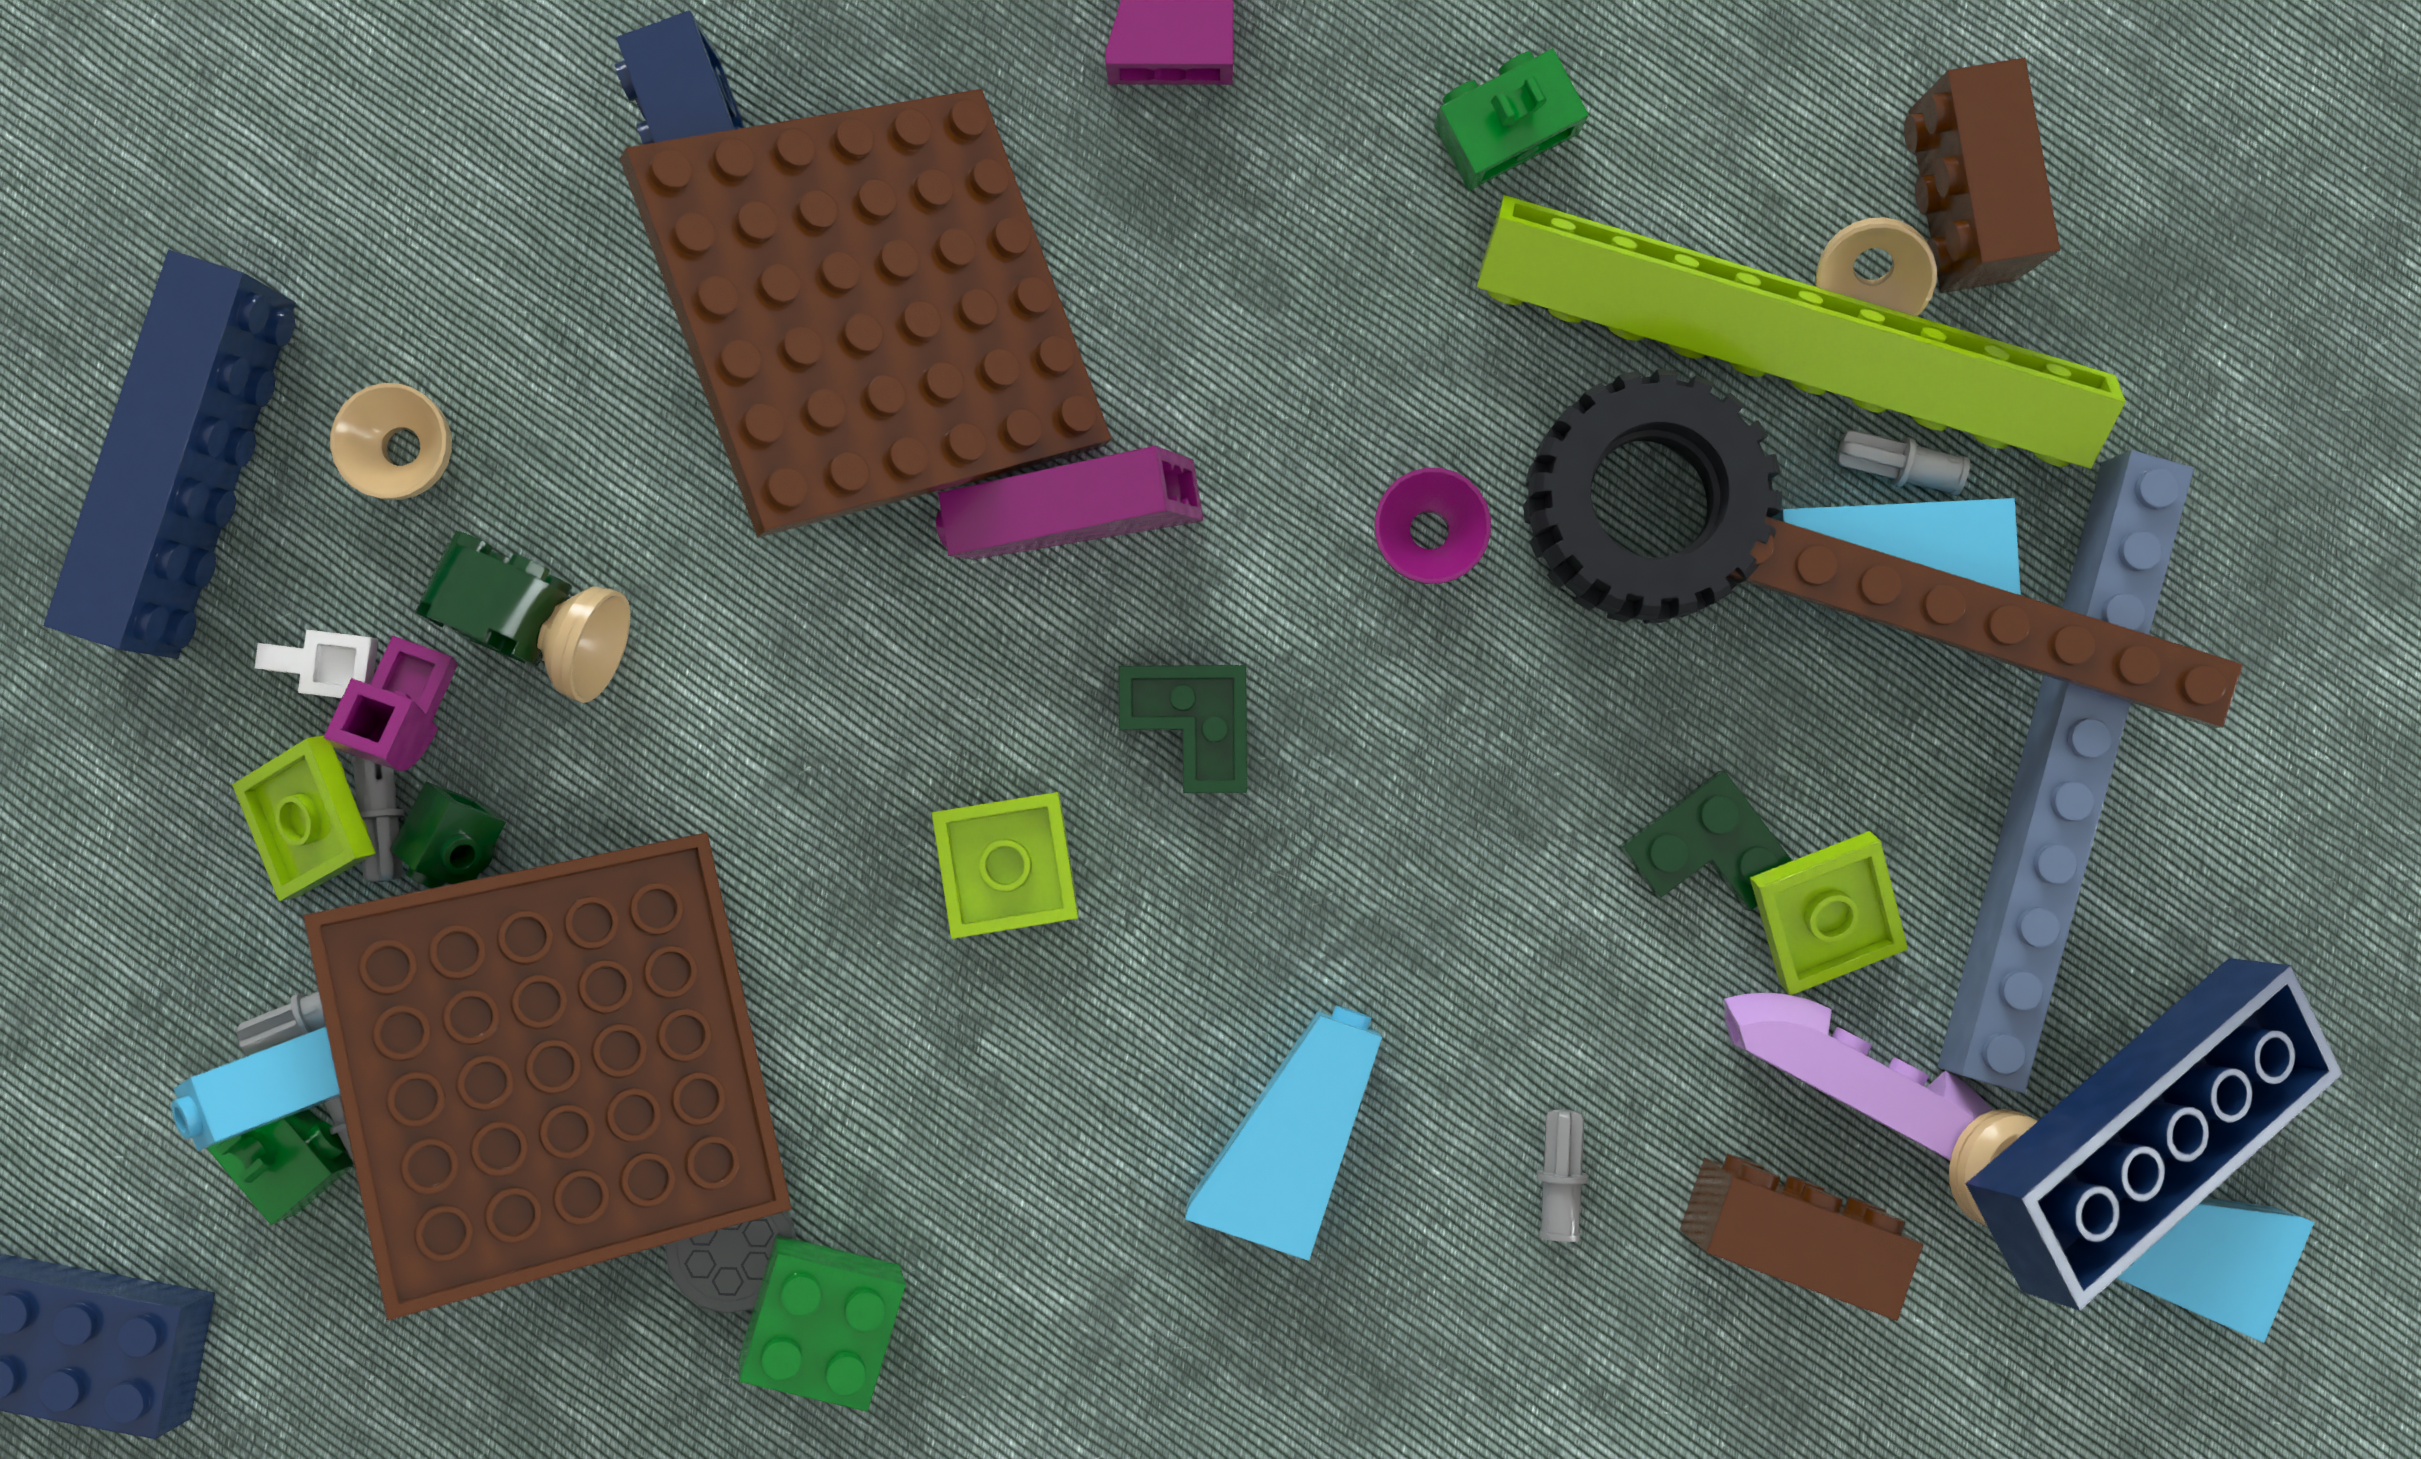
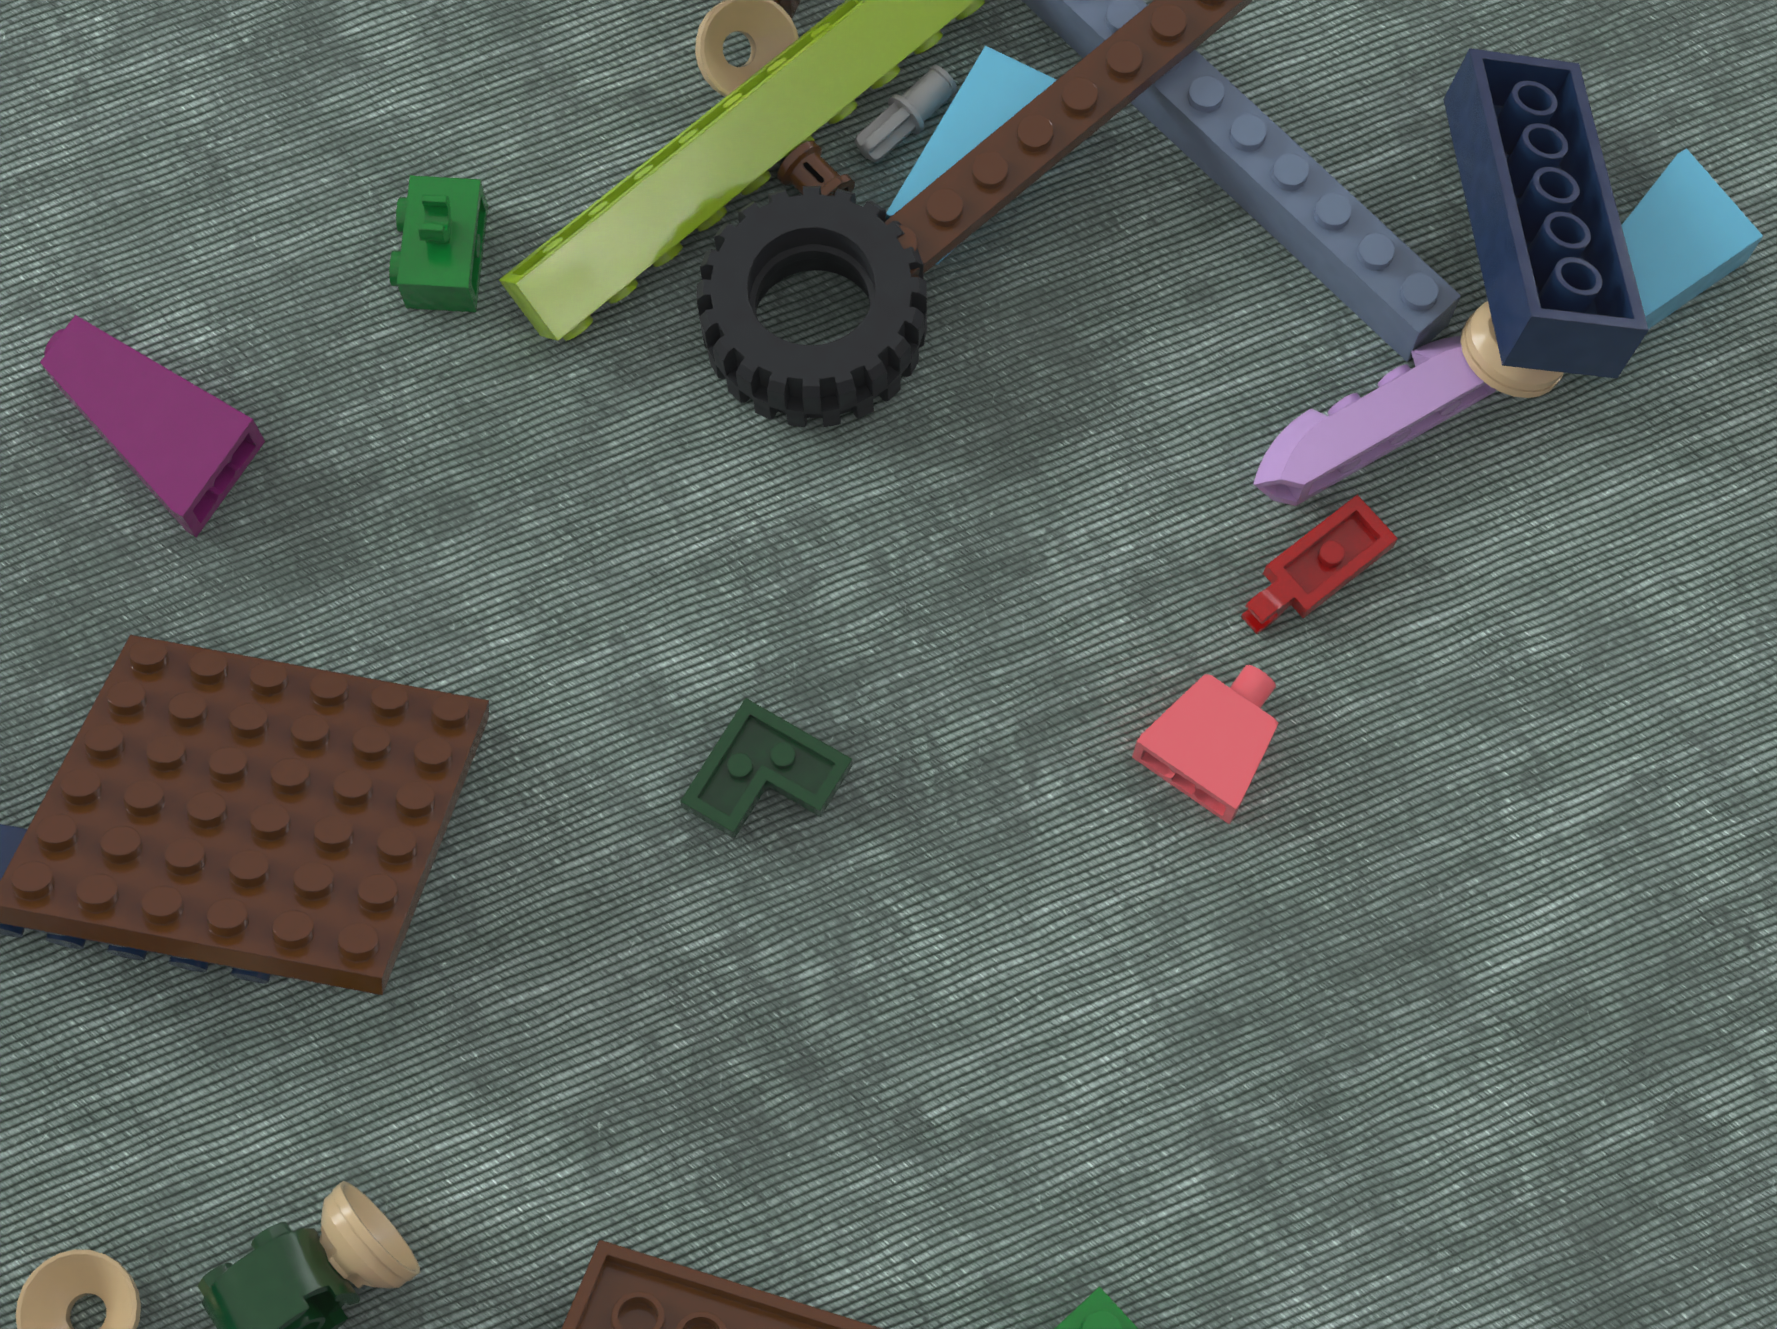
camera: 60 degrees left, 15 degrees down
(1005, 865) = (788, 998): lime plate -> none
(1070, 504) = (519, 762): magenta slope -> none
(1290, 1145) = (1170, 895): medium azure slope -> none
(1453, 500) = (722, 460): magenta piece -> none
(1458, 1102) = (1212, 740): none -> coral torso
(1562, 1176) = (1326, 695): light grey axle -> none
(1686, 1102) = (1320, 563): none -> red plate
(1705, 827) = (1113, 413): dark green plate -> none
(1798, 402) = (807, 168): none -> reddish brown bush
(1802, 1235) = (1479, 527): reddish brown brick -> none
(1829, 913) = (1231, 364): lime plate -> none

